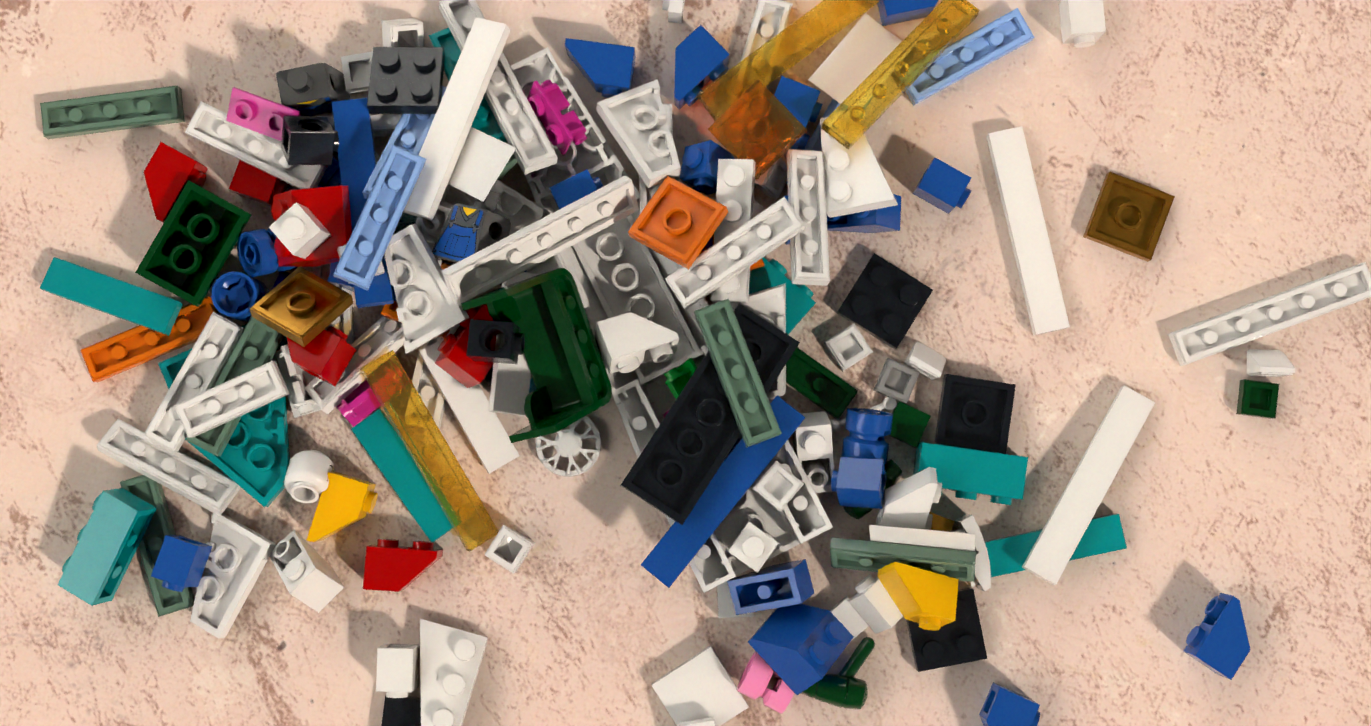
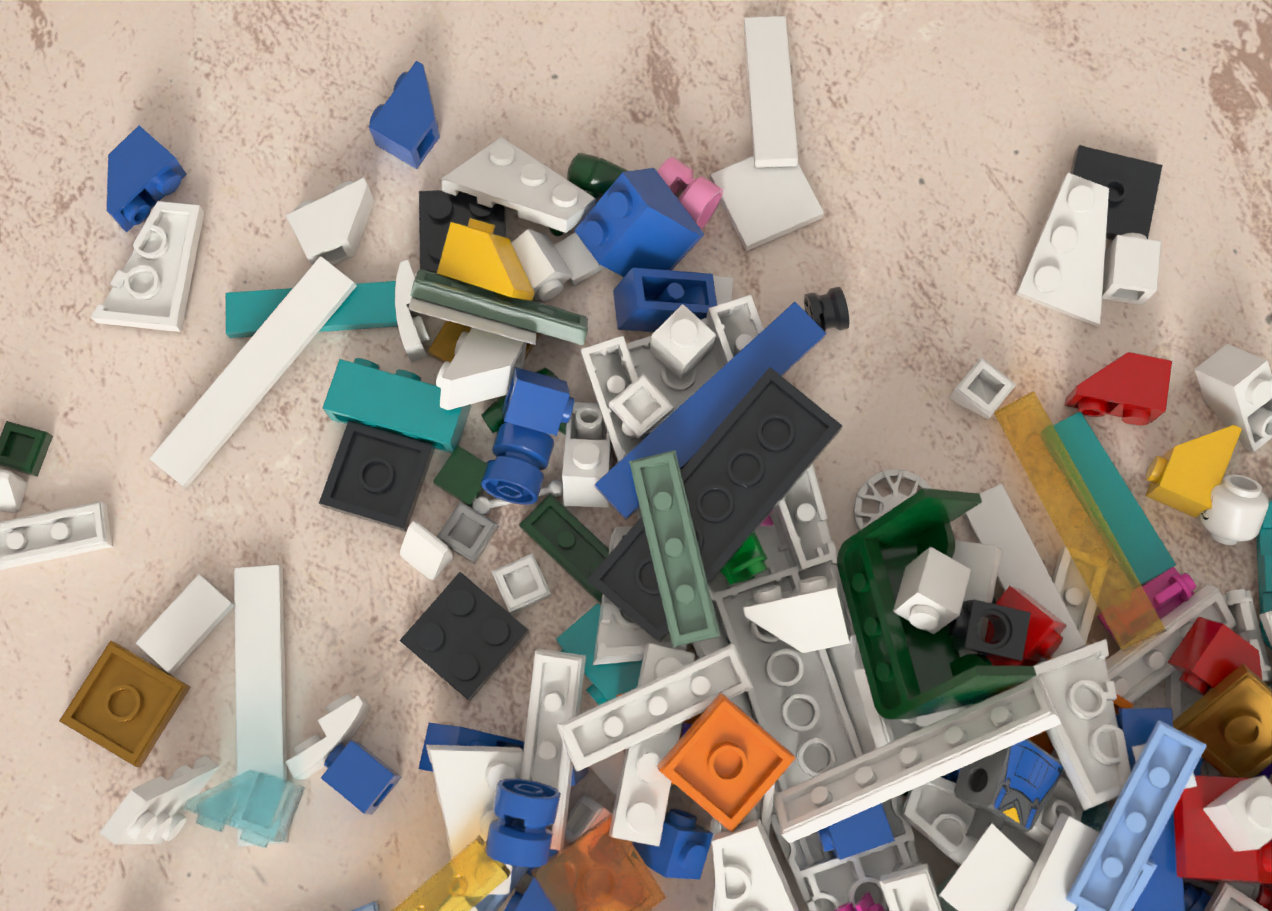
camera: 170 degrees left, 10 degrees down
(539, 366) = (932, 591): none -> white brick
(640, 598) = (828, 309): none -> black wheel
(818, 158) = (521, 829): none -> blue wheel
(904, 673) = (520, 182): none -> white wing
(965, 219) = (339, 726): none -> white slope
(1016, 152) = (250, 802): none -> clear light blue slope
(1052, 616) = (334, 222): none -> white slope
(1083, 138) = (157, 807): none -> white wing
(1097, 281) = (185, 624): none -> white tile
(1185, 559) = (159, 273): none -> white wing

